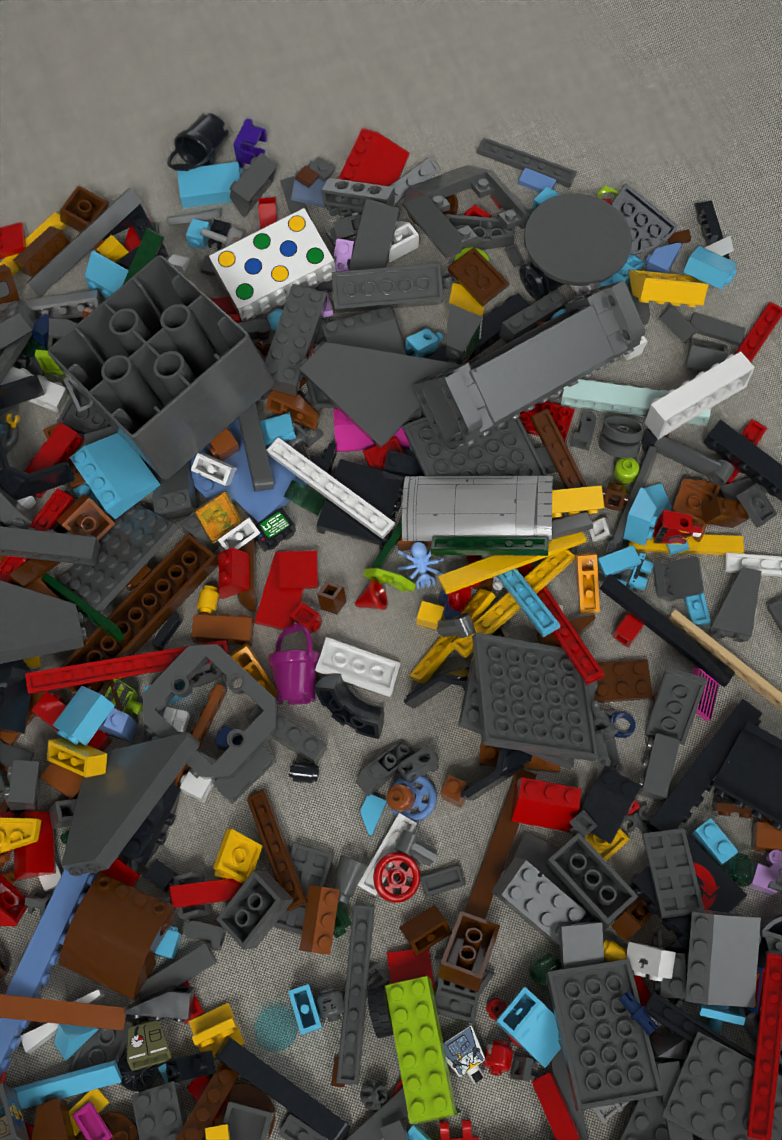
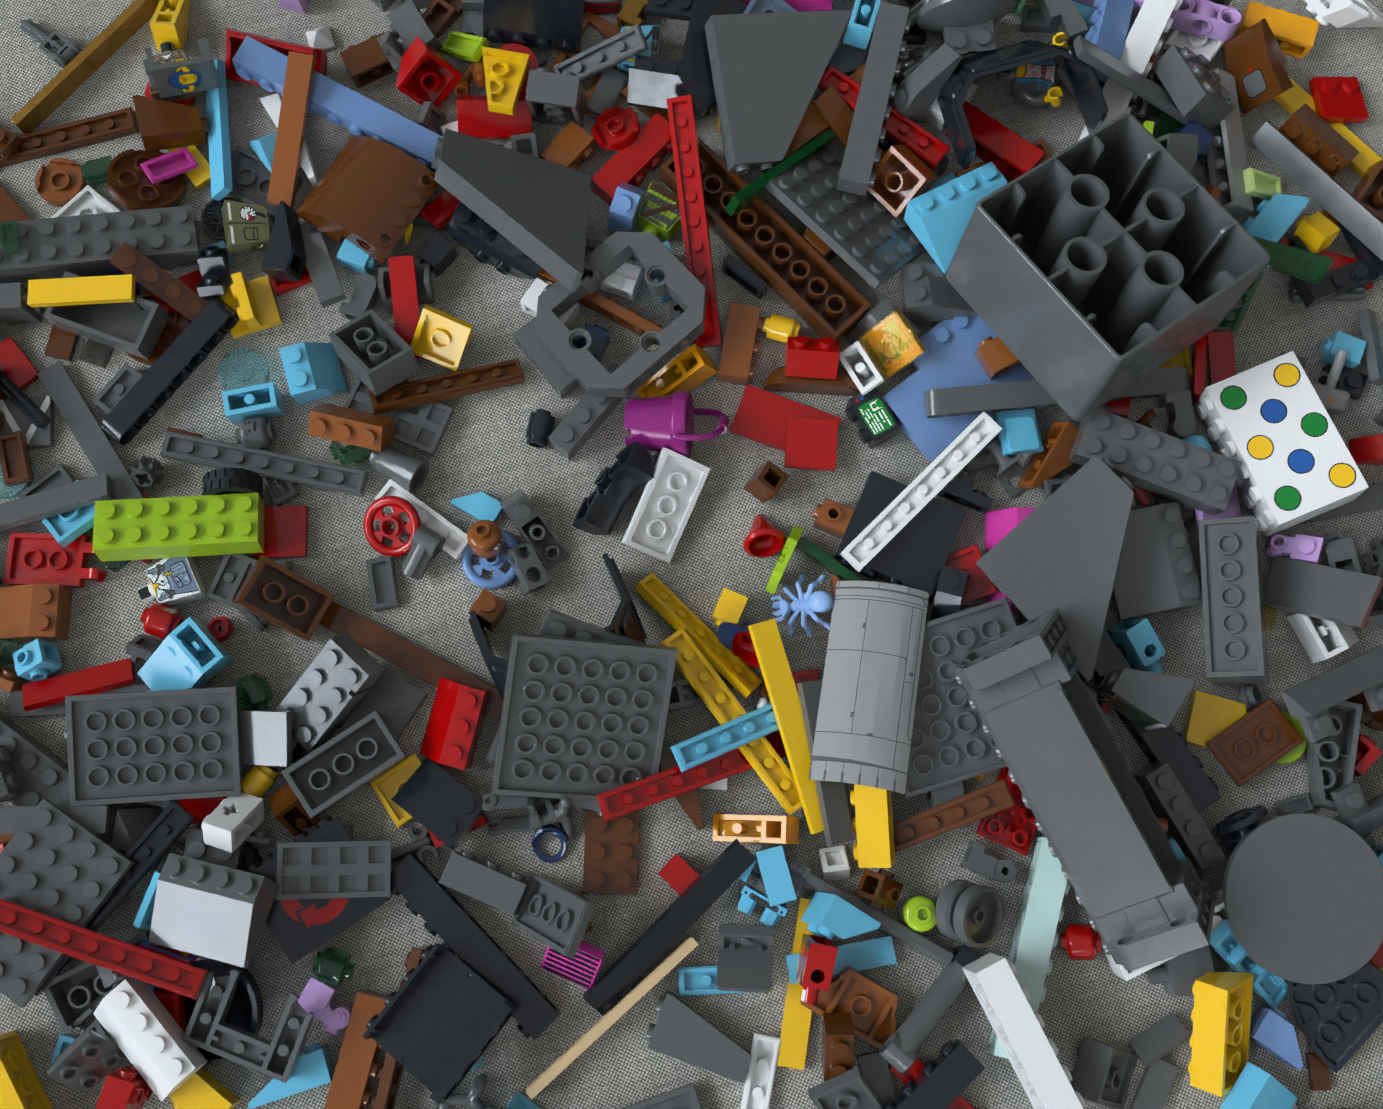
camera: 90 degrees right, 10 degrees up
(38, 740) = (616, 128): none -> red tile
(76, 285) = (1261, 183): none -> yellowish green tile
(77, 758) = (582, 156): yellow brick -> none
(83, 716) = (633, 164): medium azure brick -> none
(179, 262) = (1296, 321): white slope -> none
(213, 469) = (960, 340): white brick -> none
(271, 965) = (312, 371): none -> medium azure slope
(304, 498) = (914, 458): clear green slope -> none
(306, 616) = (742, 448): red bracket -> none
(353, 550) = (832, 517): none -> dark orange brick
(425, 930) = (322, 552): reddish brown brick -> none
(459, 625) = (703, 637): dark grey piece -> none
(490, 546) = (809, 694): dark green tile -> none
(582, 824) = (417, 764): dark grey tile -> none
(626, 371) = (1081, 942): none -> red head
(638, 1013) = (168, 792): dark blue pin -> none
(714, 842) = (373, 937): medium azure brick -> none

